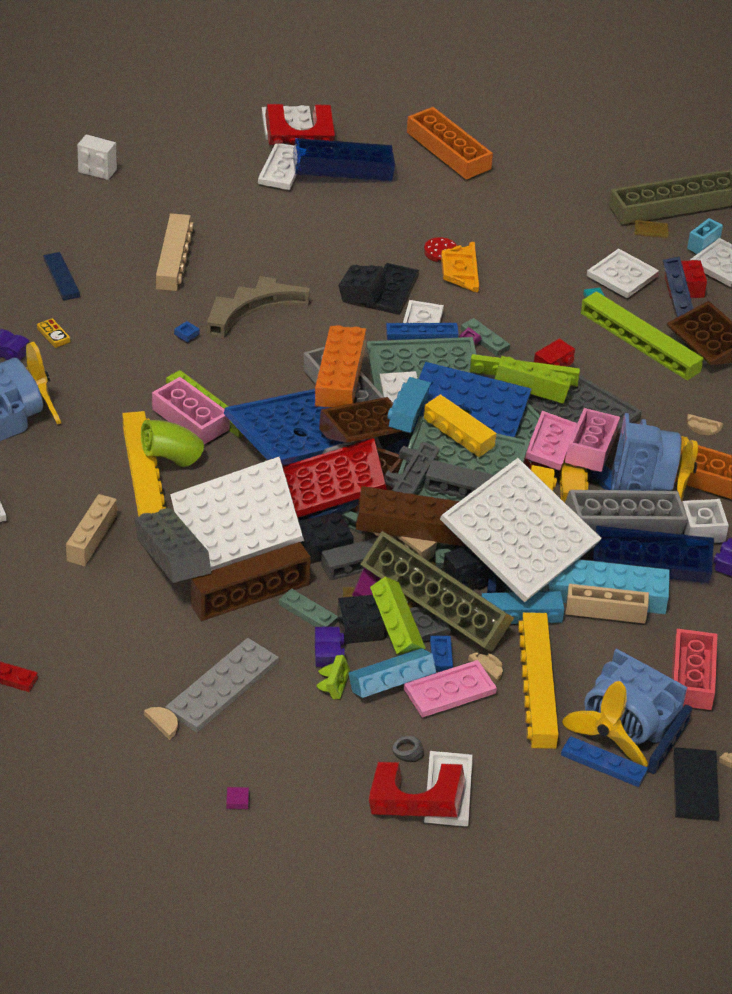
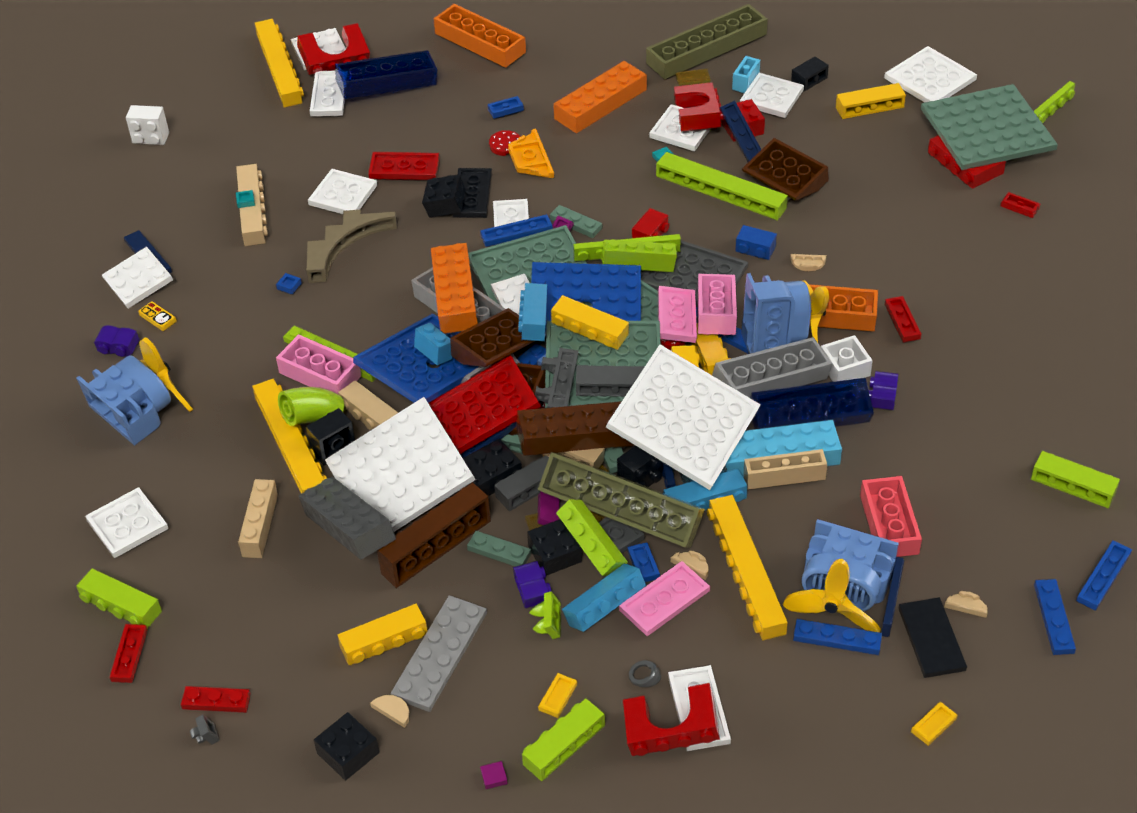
camera: 10 degrees left, 5 degrees up
(45, 294) = (137, 277): none -> white plate
(110, 739) = (346, 746): none -> black brick
(169, 244) = (245, 199): none -> teal tile
(174, 655) = (382, 634): none -> yellow brick
(181, 471) = (330, 434): none -> black brick
(223, 454) = (365, 405): none -> tan brick
(243, 127) = (279, 63): none -> yellow brick
(265, 259) = (342, 192): none -> white plate
(304, 413) = (433, 343): none -> dark azure brick
(312, 783) = (563, 739): none -> lime brick
(320, 746) = (557, 695): none -> yellow tile
(333, 248) = (403, 165): none -> red plate
(452, 216) = (505, 107): none -> blue plate
(550, 226) = (600, 96): none -> orange brick
(644, 256) = (704, 106): none -> red arch
(656, 395) = (756, 242): none -> blue brick
(668, 857) = (934, 723): none -> yellow tile

